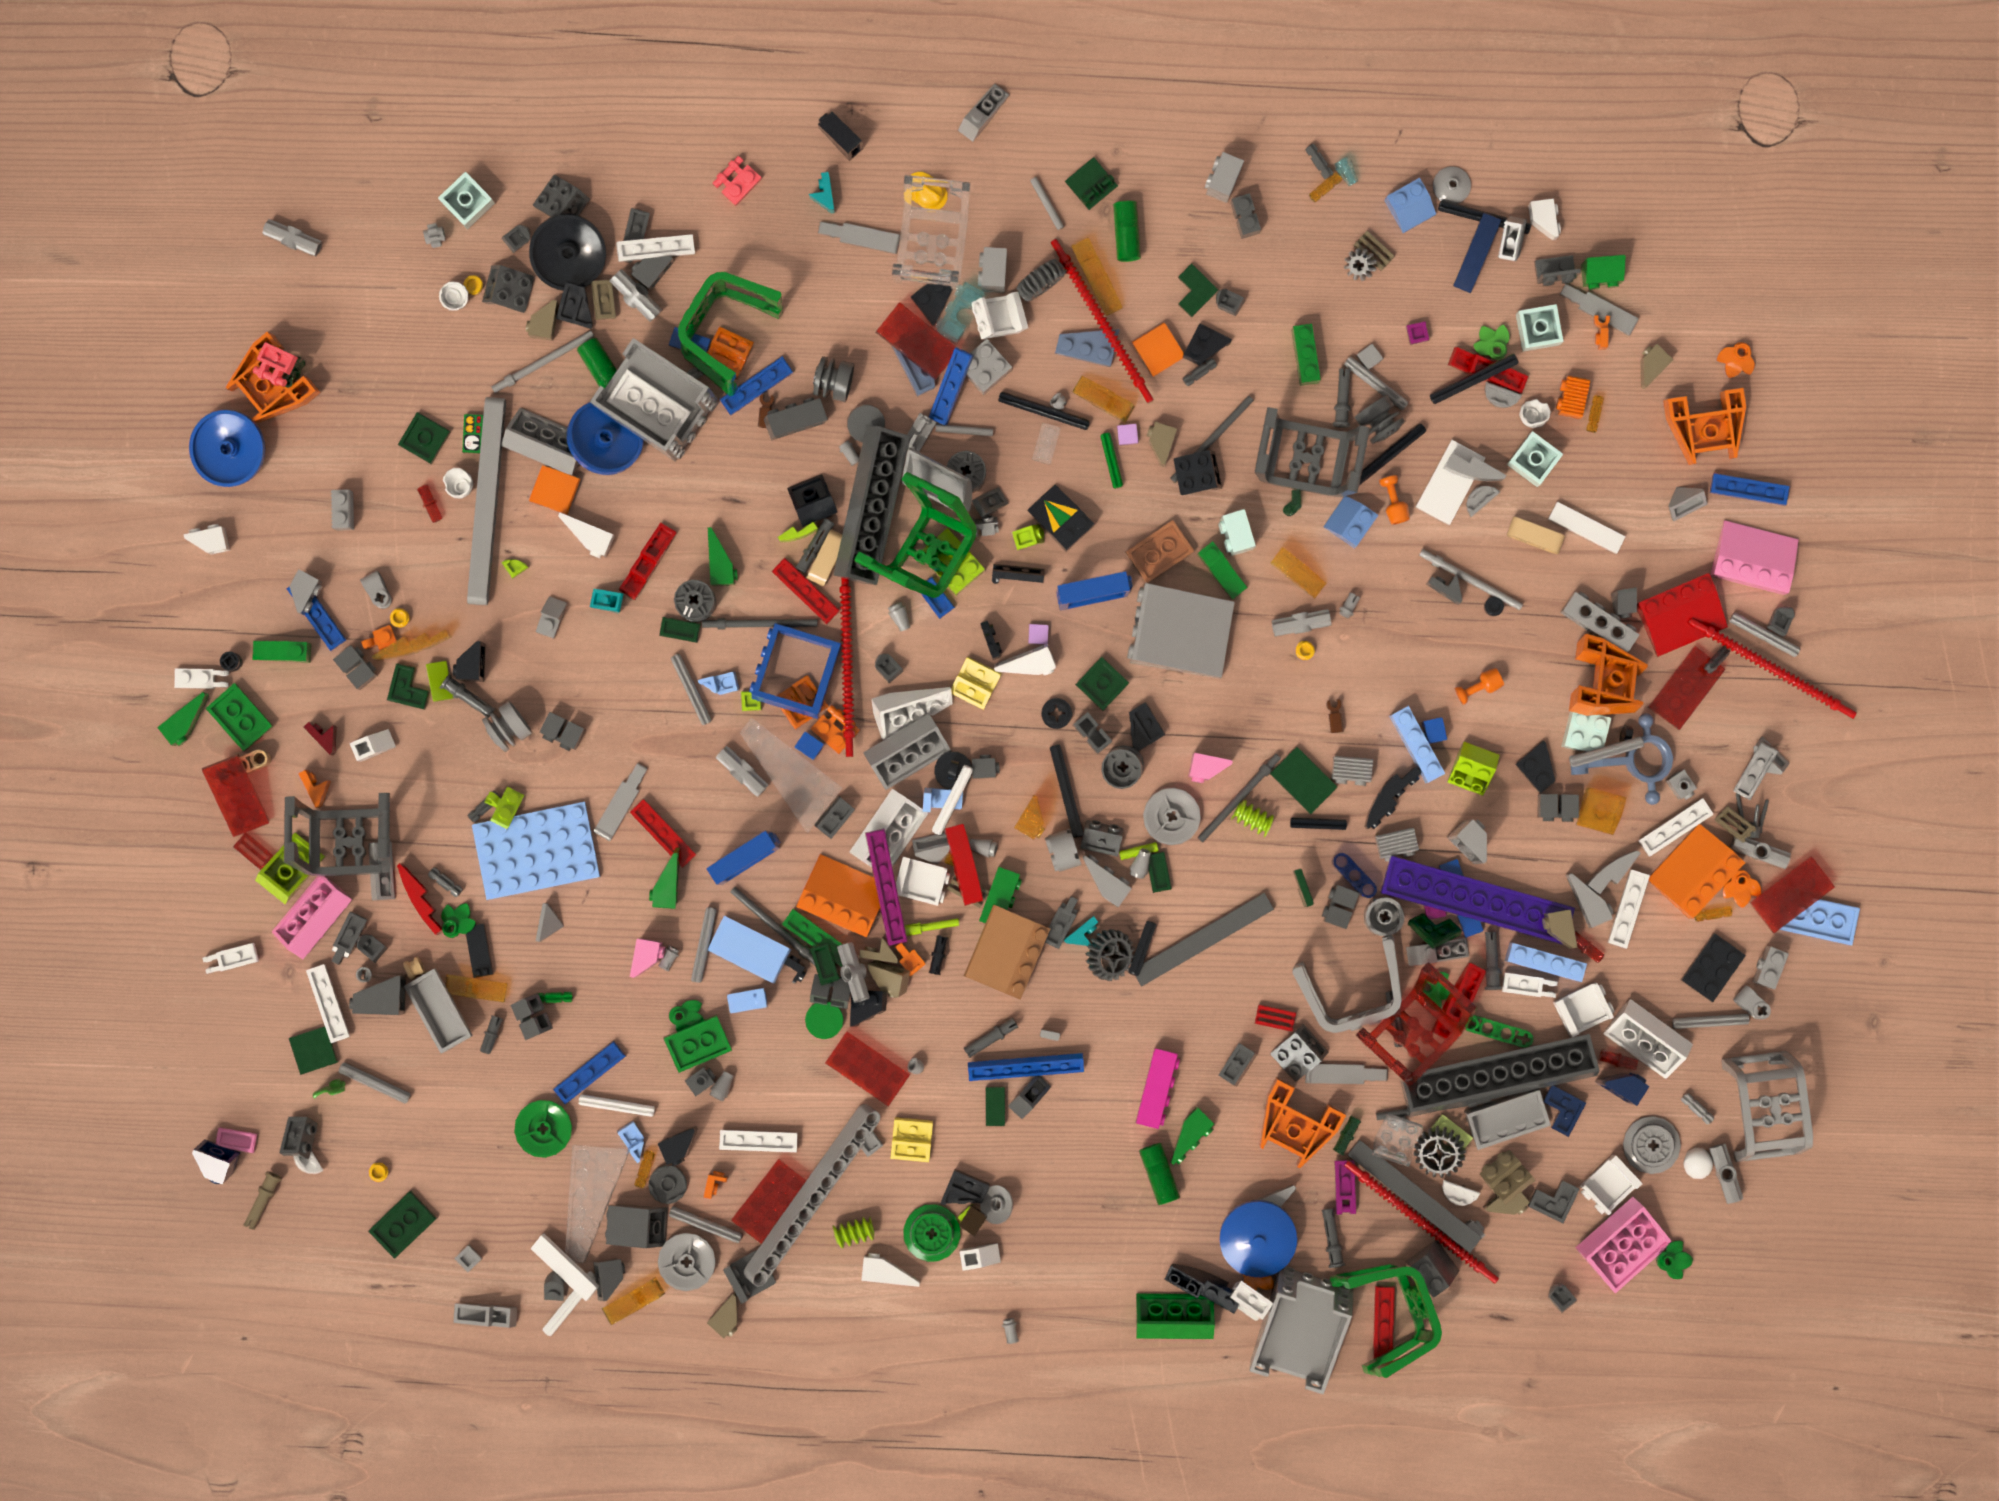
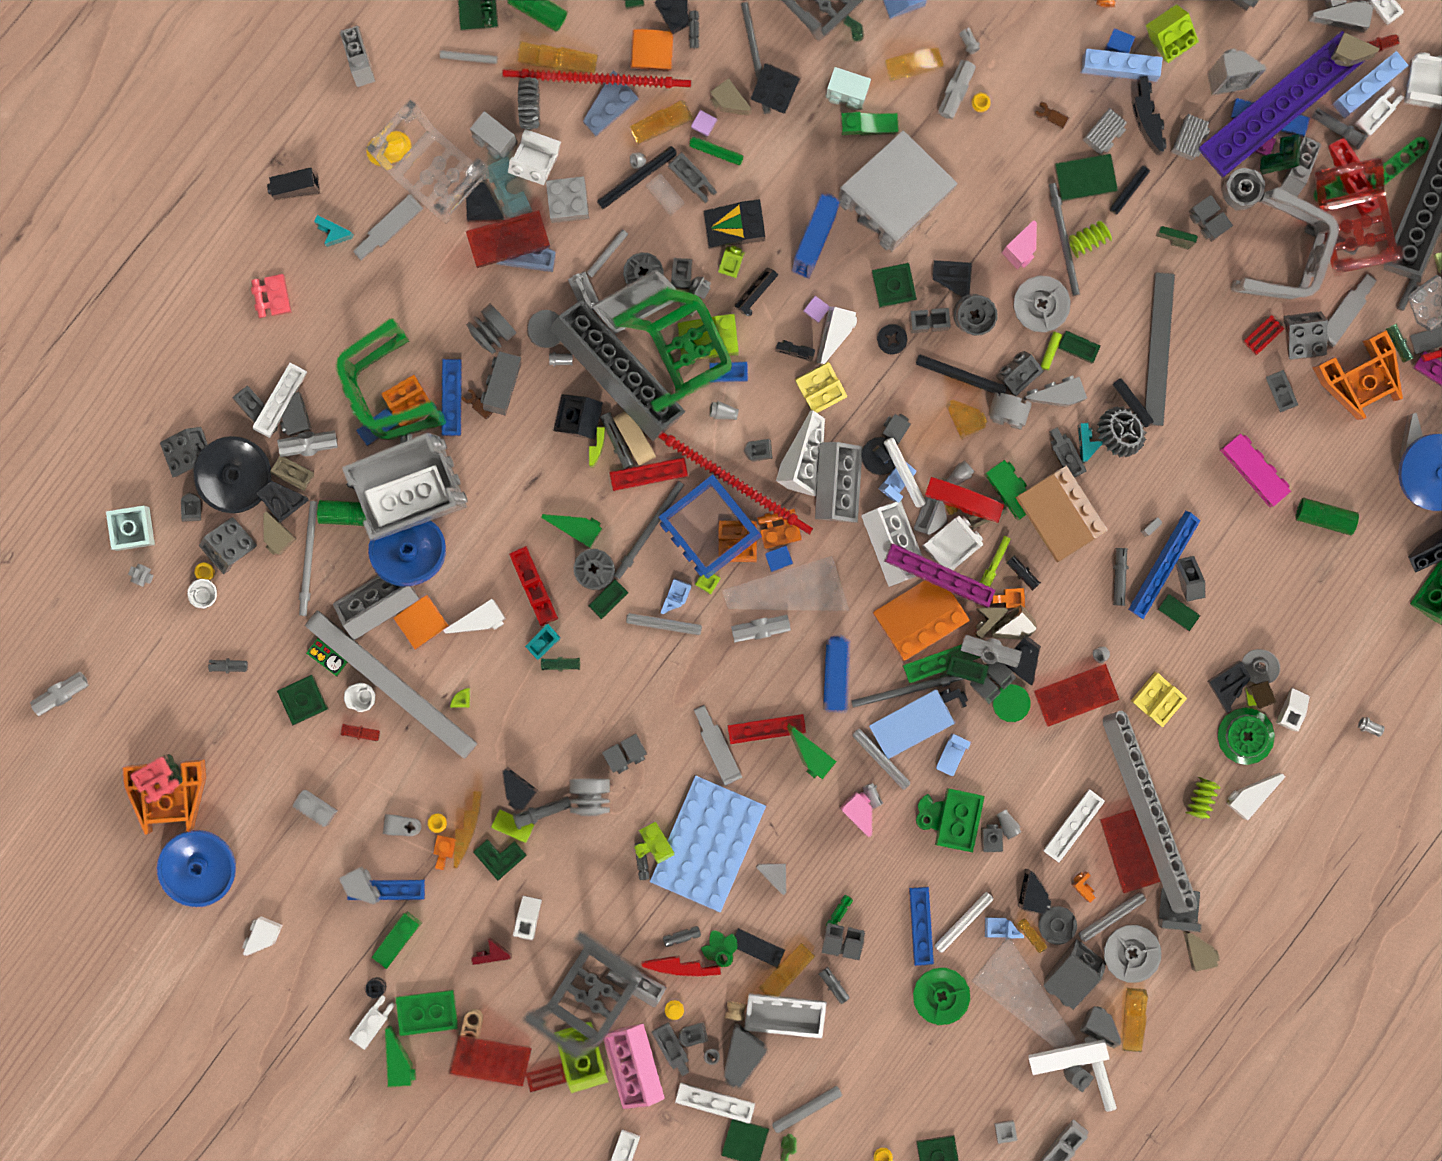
camera: 55 degrees left, 0 degrees up
(316, 793) = (534, 991): orange slope -> none
(361, 674) = (443, 887): dark grey piece -> none
(380, 917) = (674, 1010): none -> yellow plate
(409, 358) = (227, 666): none -> dark grey axle
(551, 617) = (524, 697): light grey slope -> none
(599, 627) = (560, 664): none -> clear green pin
(834, 817) = (851, 578): dark grey hinge -> none
(871, 1145) = (1141, 735): light grey tile -> none
(951, 386) = (564, 237): blue tile -> none
(1075, 454) = (691, 176): none -> dark grey hinge
(1140, 865) = (1064, 357): light grey cone -> none
(1159, 551) = (818, 164): nougat plate -> none
(1192, 1129) = (1309, 465): green slope -> none
(1362, 880) = (1200, 185): clear blue beam -> none

